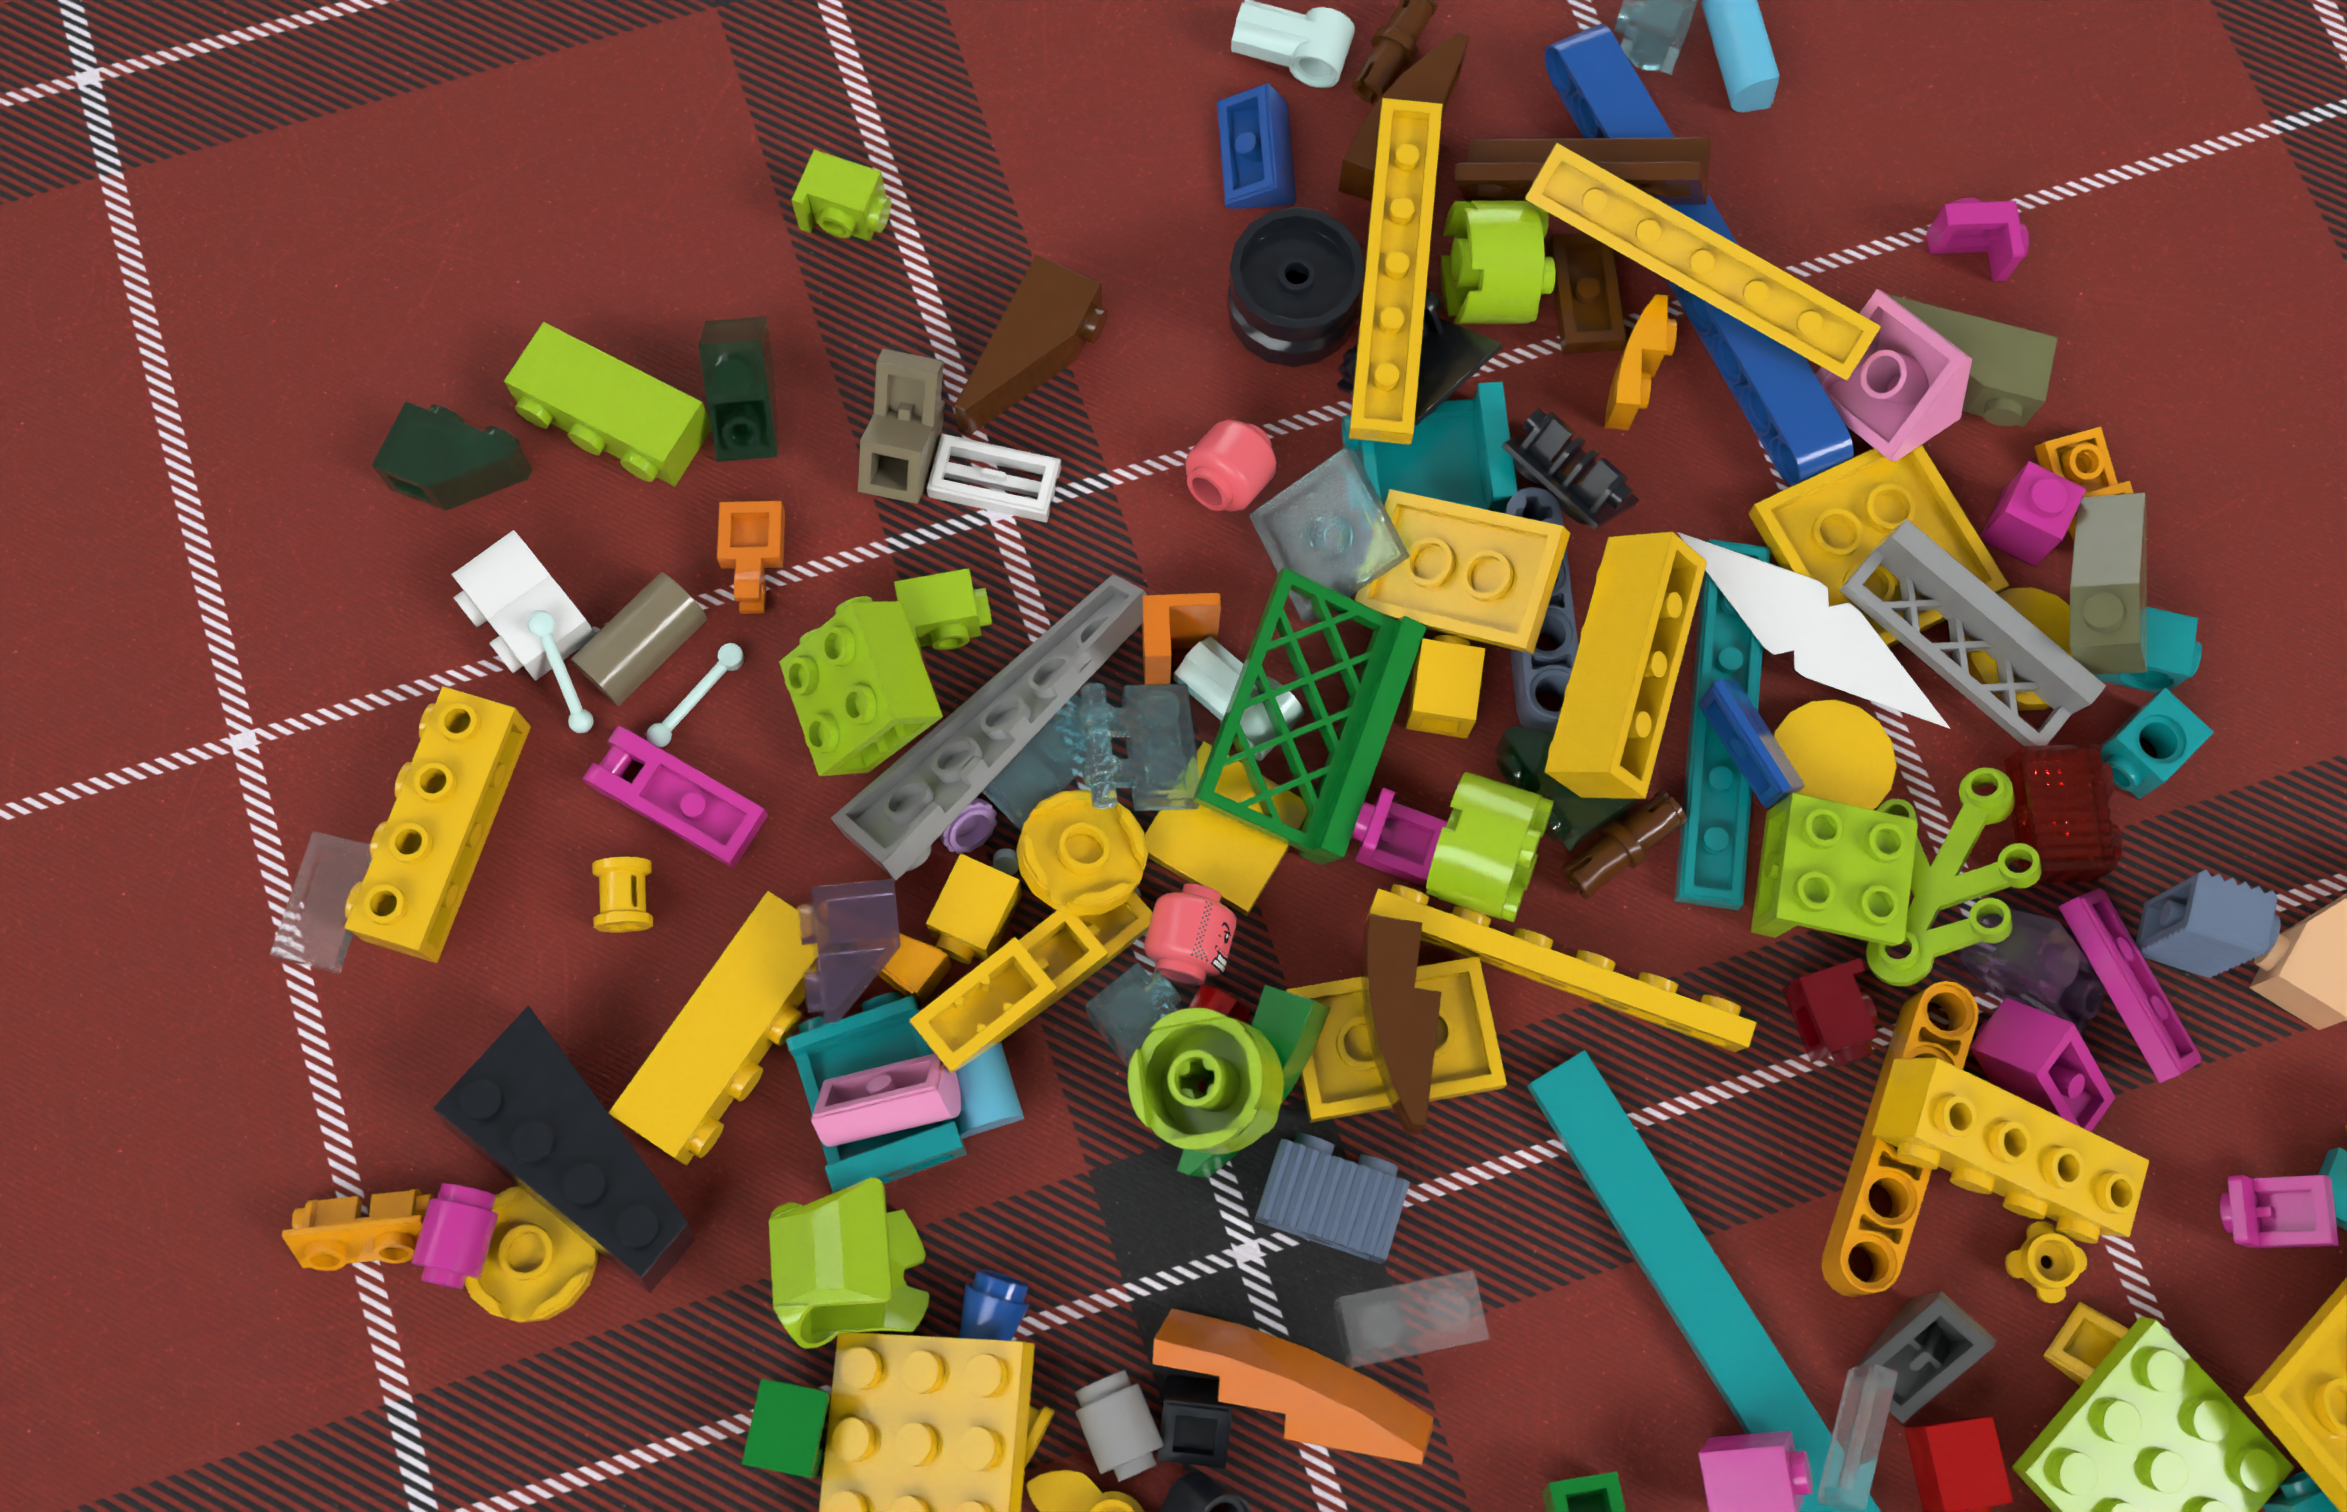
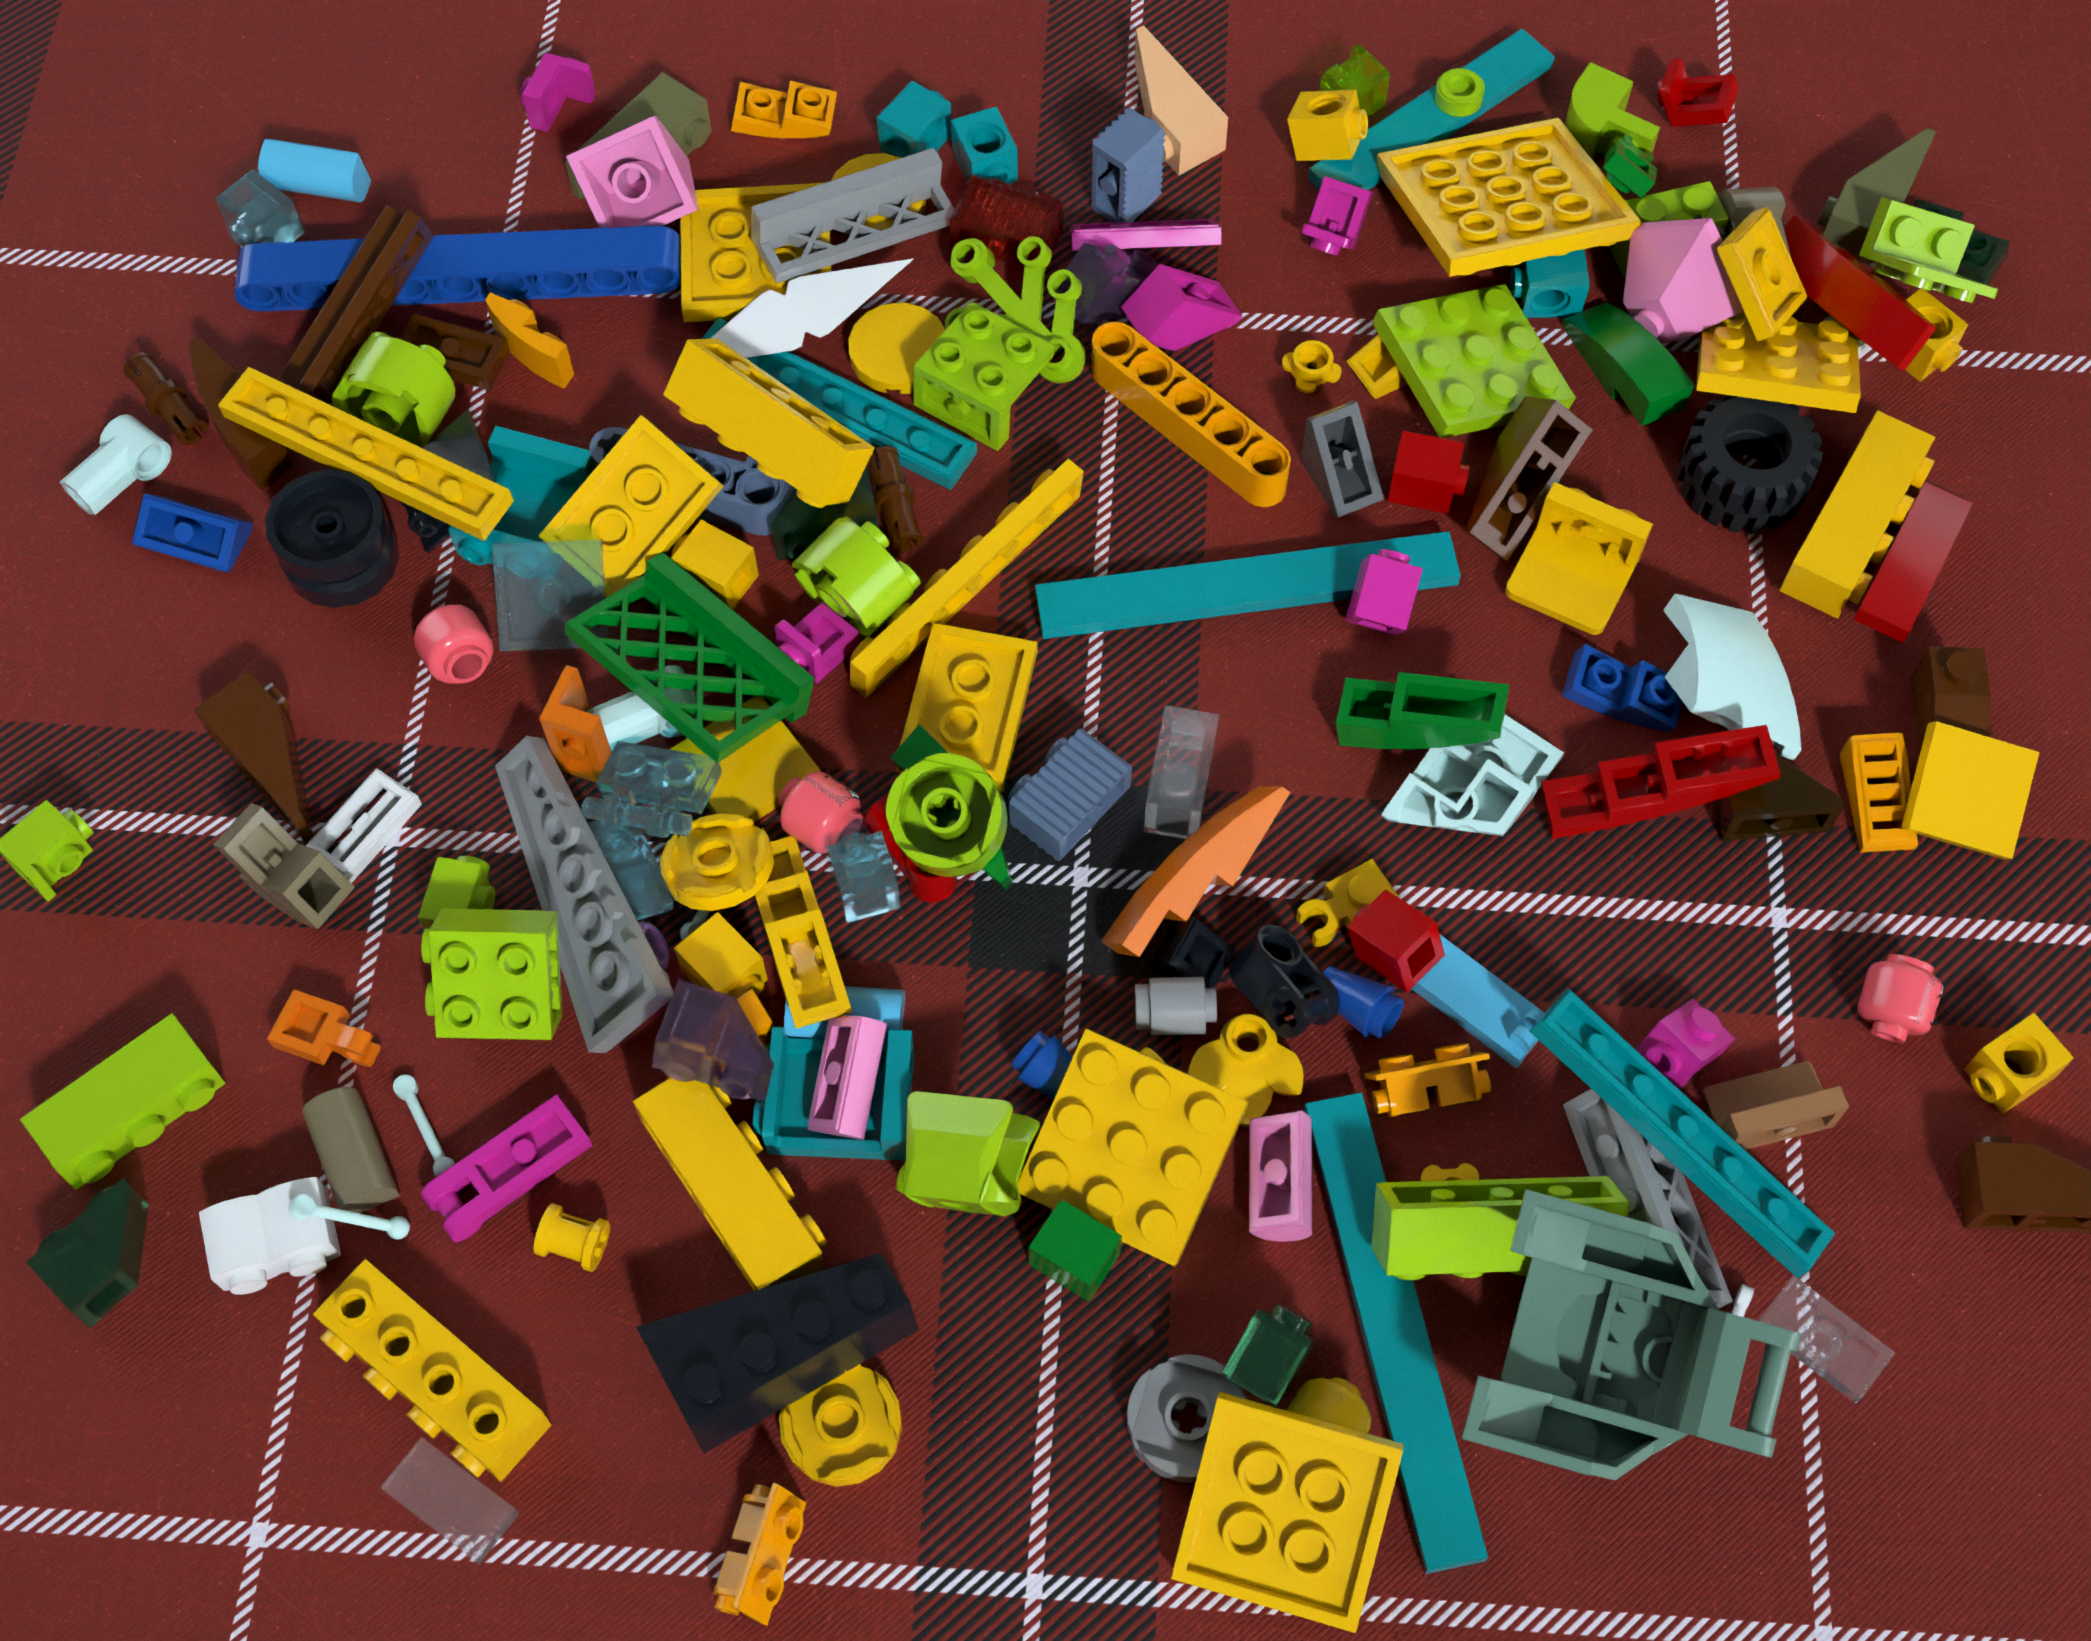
camera: 65 degrees left, 10 degrees down
(455, 1235) = (803, 1460): dark pink brick -> none
(740, 388) = (162, 981): clear green slope -> none
(1399, 1016) = (957, 684): reddish brown slope -> none
(1586, 488) = (565, 421): black hinge -> none
(1702, 261) = (477, 252): yellow plate -> none
(1750, 742) = (861, 385): blue slope -> none
(1833, 1014) = (1082, 418): dark red brick -> none
(1857, 1437) = (1383, 517): clear tile -> none
(2010, 1149) = (1226, 342): yellow brick -> none
(2032, 514) = (782, 146): dark pink brick -> none
(2110, 584) = (862, 114): olive slope -> none

